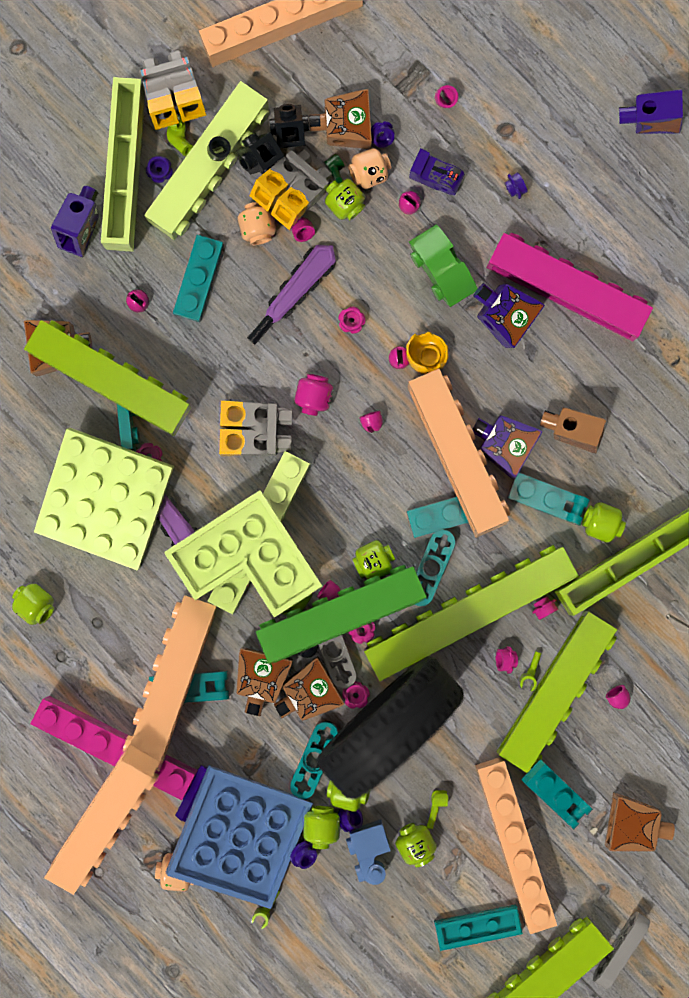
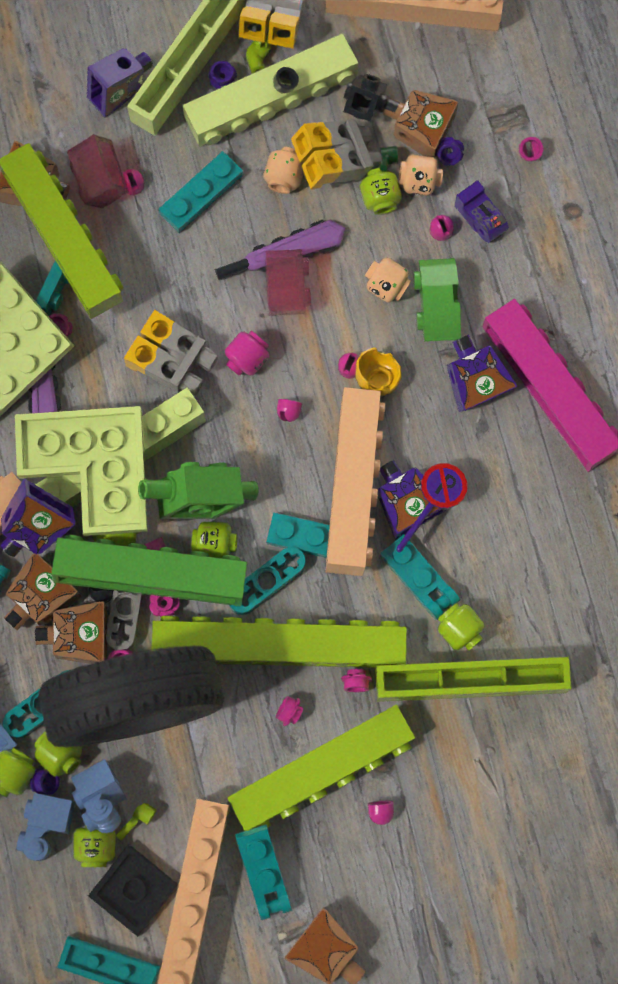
camera: 30 degrees right, 10 degrees down
(106, 309) = (97, 171): none -> clear pink brick
(228, 626) = (34, 520): none -> torso
(259, 153) = (322, 104): black brick -> none
(305, 235) = (318, 199): dark pink hinge -> none
(312, 318) = (286, 282): none -> clear pink brick
(342, 530) = (198, 491): none -> bright green brick
(351, 312) = (324, 298): dark pink plate -> none
(392, 271) = (387, 279): none -> light nougat head
(396, 806) = (98, 793): none -> medium blue brick
(464, 860) = (133, 890): none -> black tile
(515, 185) = (552, 264): dark purple plate -> none
(531, 420) = (443, 488): none -> piece
(531, 671) = (308, 737): lime hand -> none
(585, 436) = (486, 523): medium nougat torso -> none

